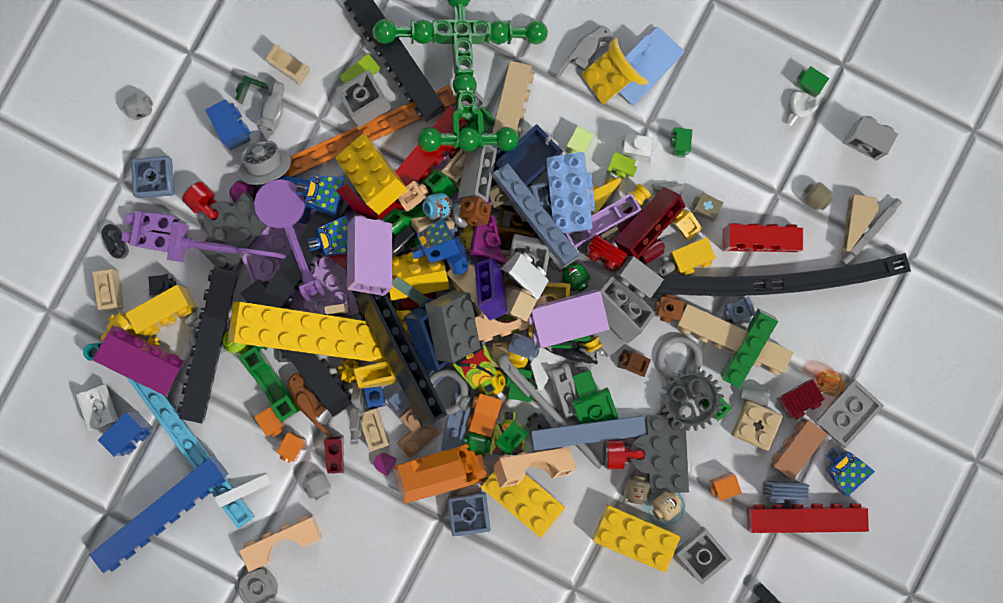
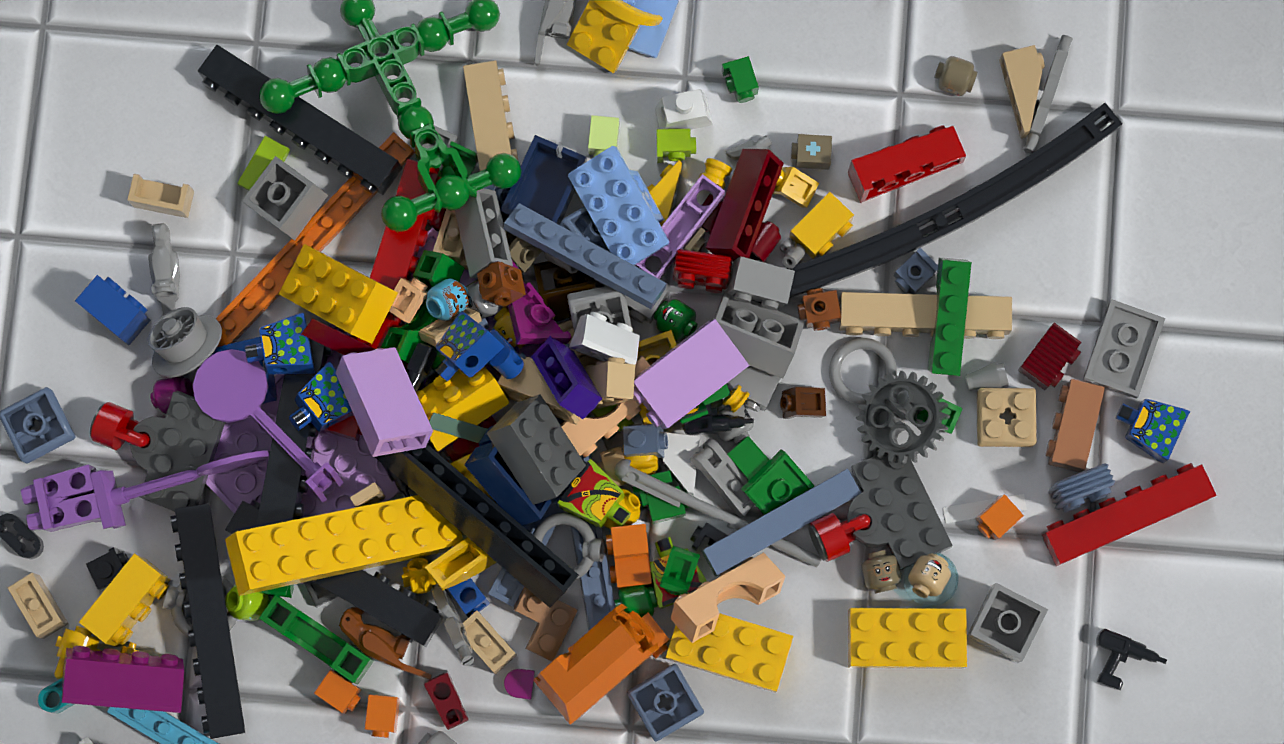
camera: 20 degrees left, 5 degrees down
(242, 87) = (111, 252): dark green bracket -> none
(830, 382) = (1080, 317): clear orange head -> none

